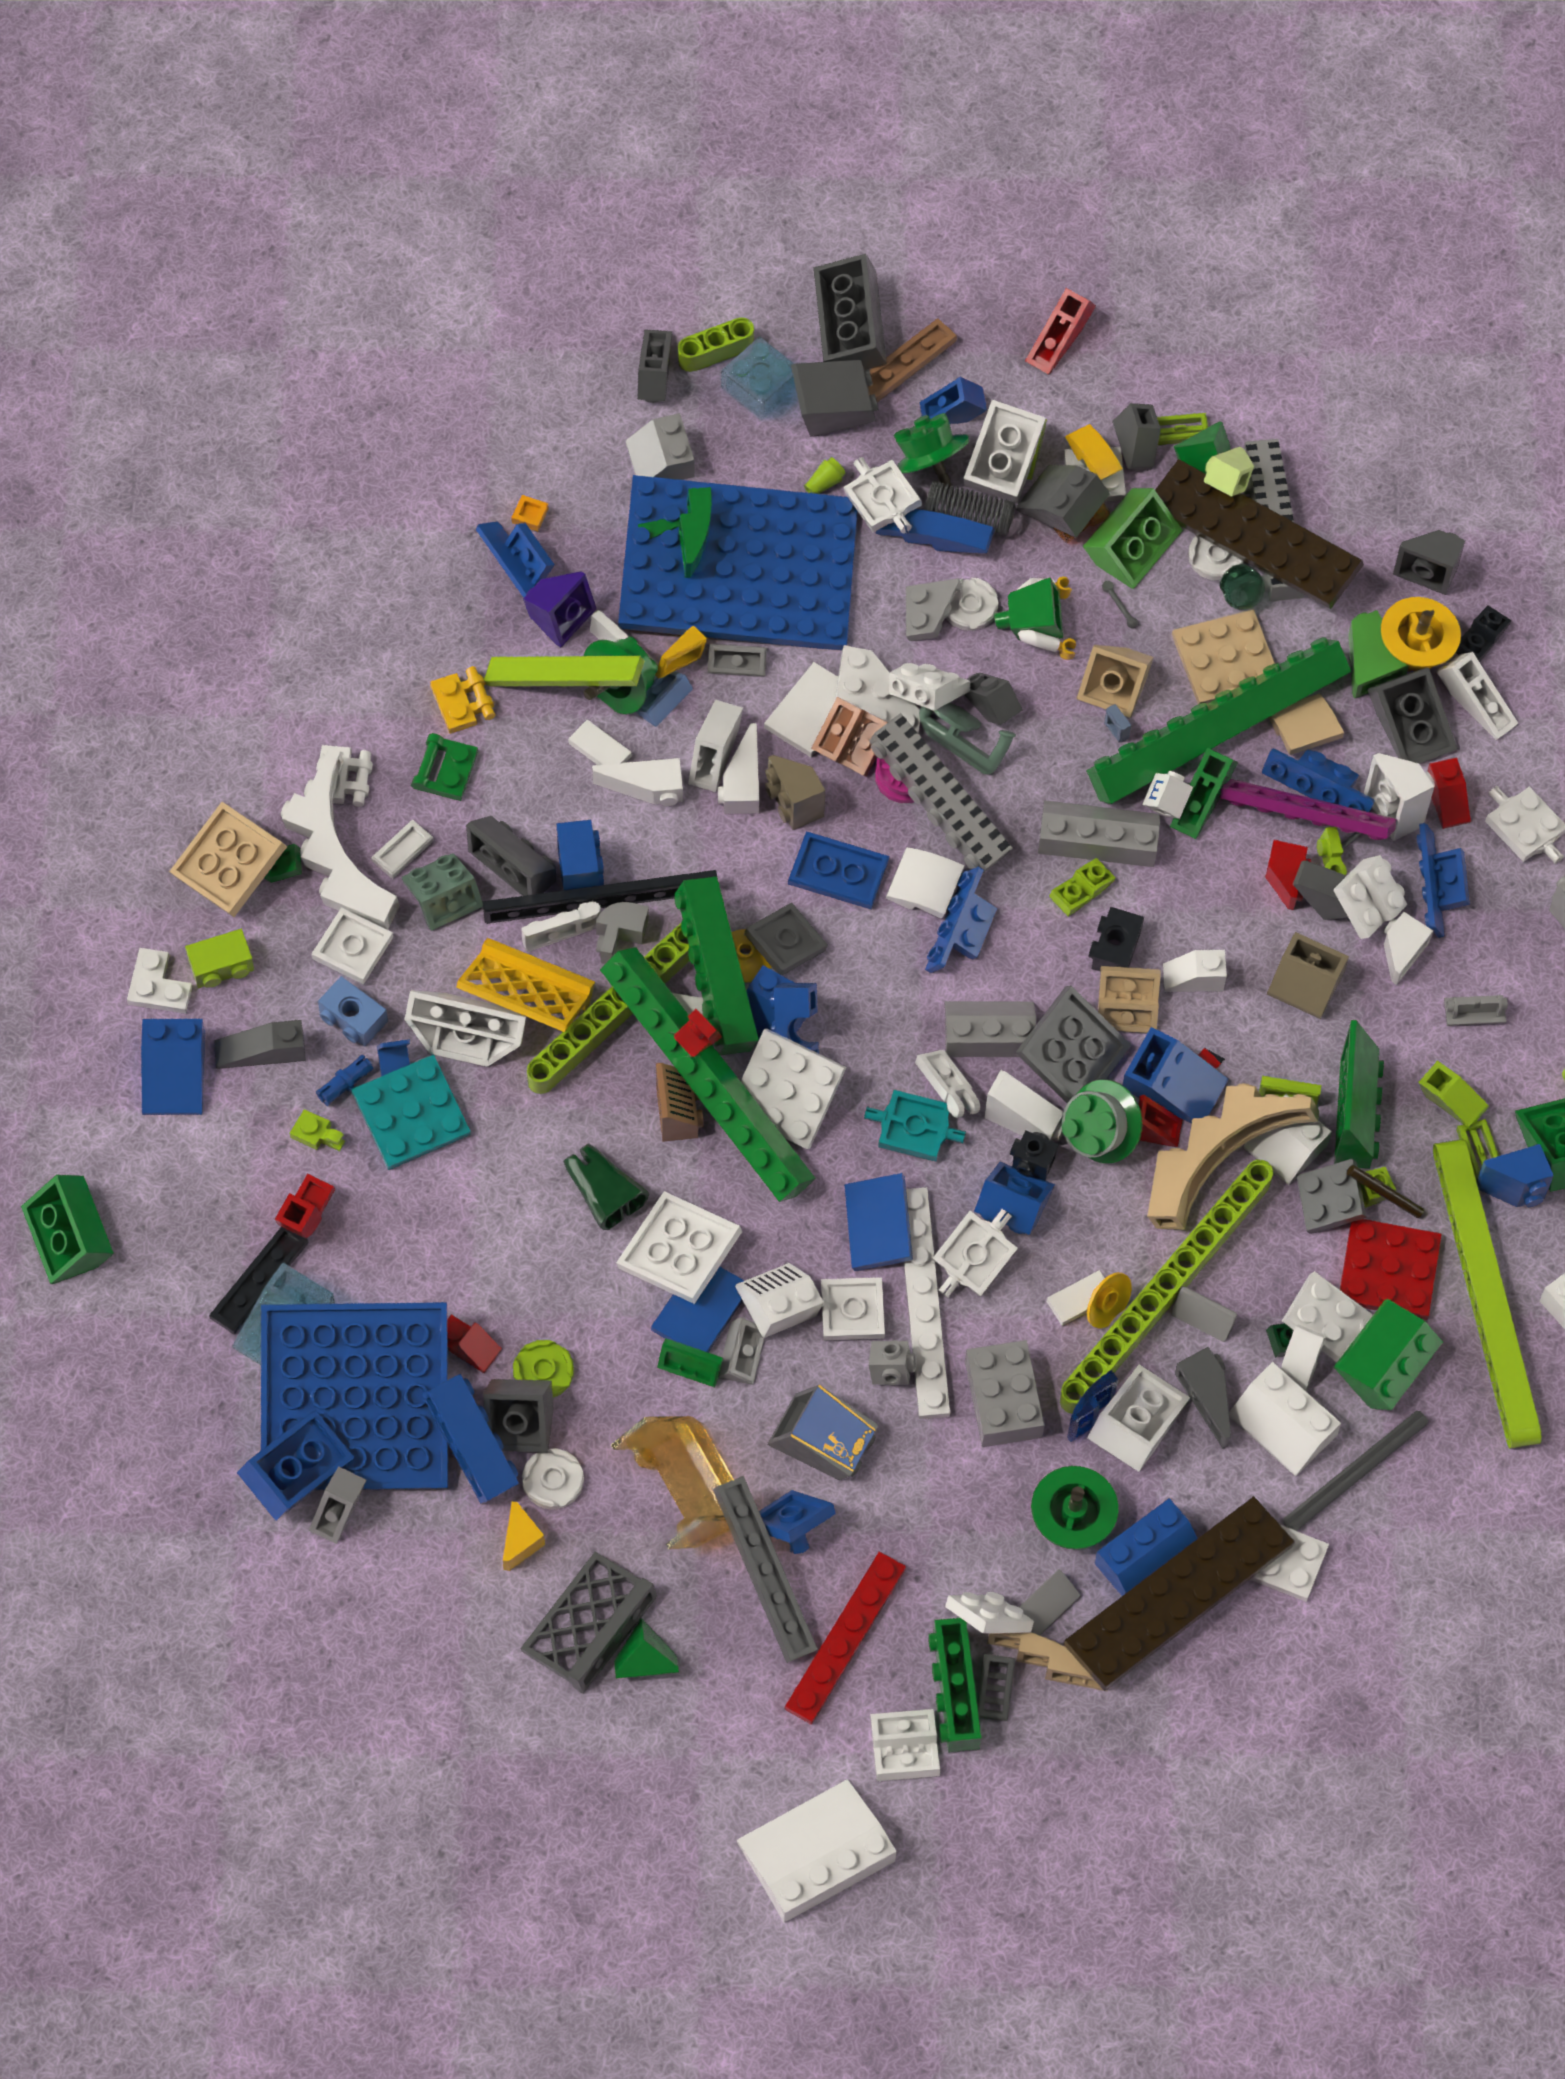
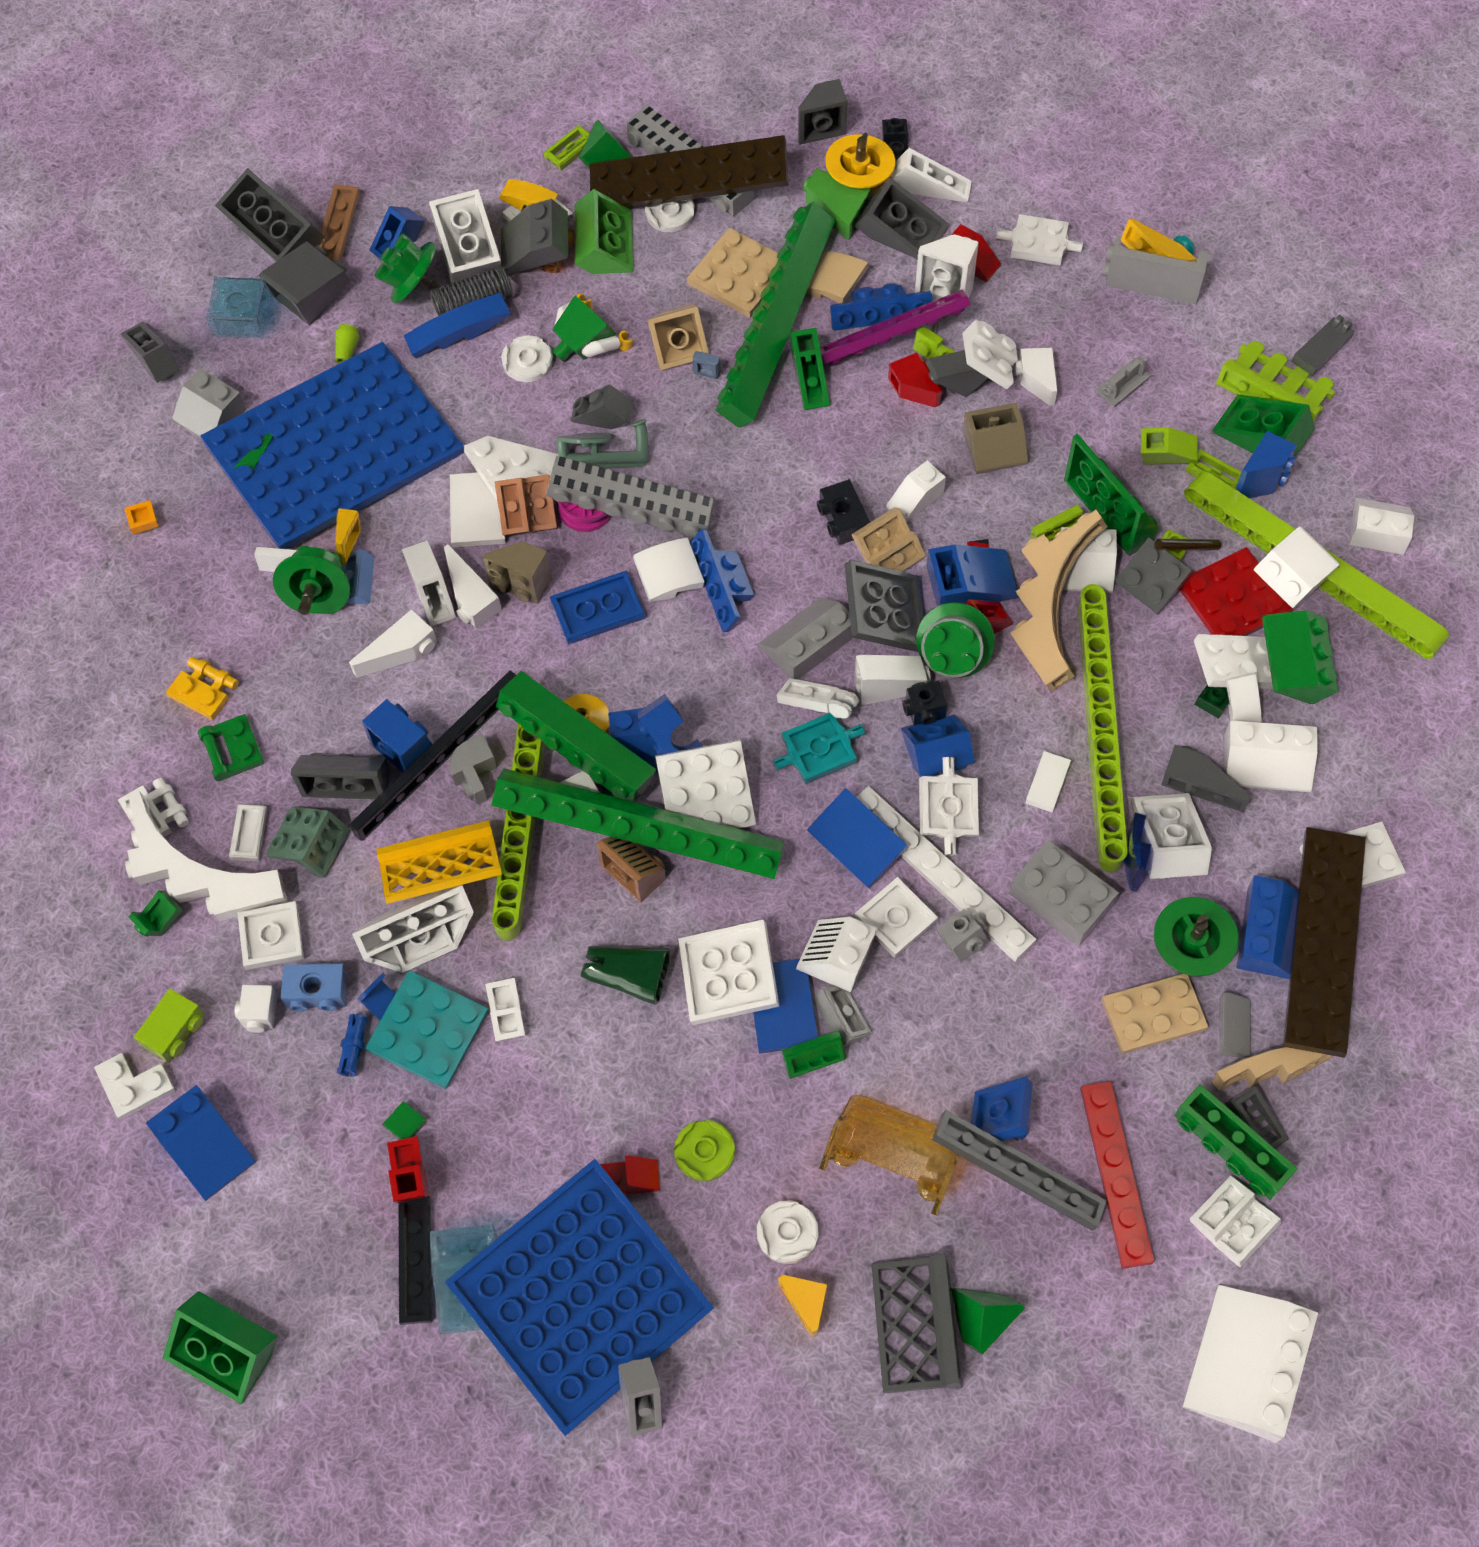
camera: 35 degrees left, 0 degrees up
(228, 859) = (113, 942): tan plate -> none
(262, 1045) = (261, 1069): dark grey slope -> none
(294, 1465) = (580, 1393): blue slope -> none
(296, 995) = (257, 1007): none -> white brick
(314, 1130) = (360, 1103): lime plate -> none
(335, 1170) = (404, 1122): none -> green tile
(470, 1438) = (703, 1253): blue brick -> none
(483, 1143) = (505, 1009): none -> white slope
(518, 554) = (166, 553): blue bracket -> none
(520, 1413) = (720, 1203): dark grey slope -> none
(560, 605) = (223, 564): dark purple slope -> none
(561, 927) = (425, 799): white hinge -> none
(564, 671) = (269, 607): lime tile -> none
(598, 745) = (338, 646): white tile -> none
(695, 528) = (281, 437): green slope -> none
(696, 1034) = (612, 795): red slope -> none
(702, 344) = (184, 307): lime beam -> none
(737, 659) = (390, 513): light grey slope -> none
(785, 939) = (604, 683): dark grey plate -> none
(824, 1433) = (960, 1028): slope -> none
(882, 495) = (401, 325): white plate -> none
(926, 685) = (550, 431): white plate -> none
(928, 607) = (501, 379): light grey wing -> none
(989, 1613) = (1213, 1066): white plate -> none
(992, 1544) = (1154, 1013): none -> tan plate
(1060, 330) = (429, 136): red slope -> none
(1082, 887) = (782, 493): lime slope -> none
(1099, 833) = (762, 448): light grey slope -> none
(1107, 587) = (614, 282): dark grey hinge -> none
(1109, 1299) = (1073, 765): yellow dish -> none
(1138, 435) = (547, 166): dark grey slope -> none
(1168, 794) = (788, 386): white brick -> none
(1204, 1314) = (1145, 725): light grey slope -> none
(1229, 471) = (636, 143): yellowish green slope -> none
(1242, 587) = (710, 216): clear green hair -> none
(1355, 1471) = (1348, 756): dark grey axle -> none
(1444, 879) = (1024, 309): blue bracket -> none
(1457, 1281) = (1296, 567): none -> white slope

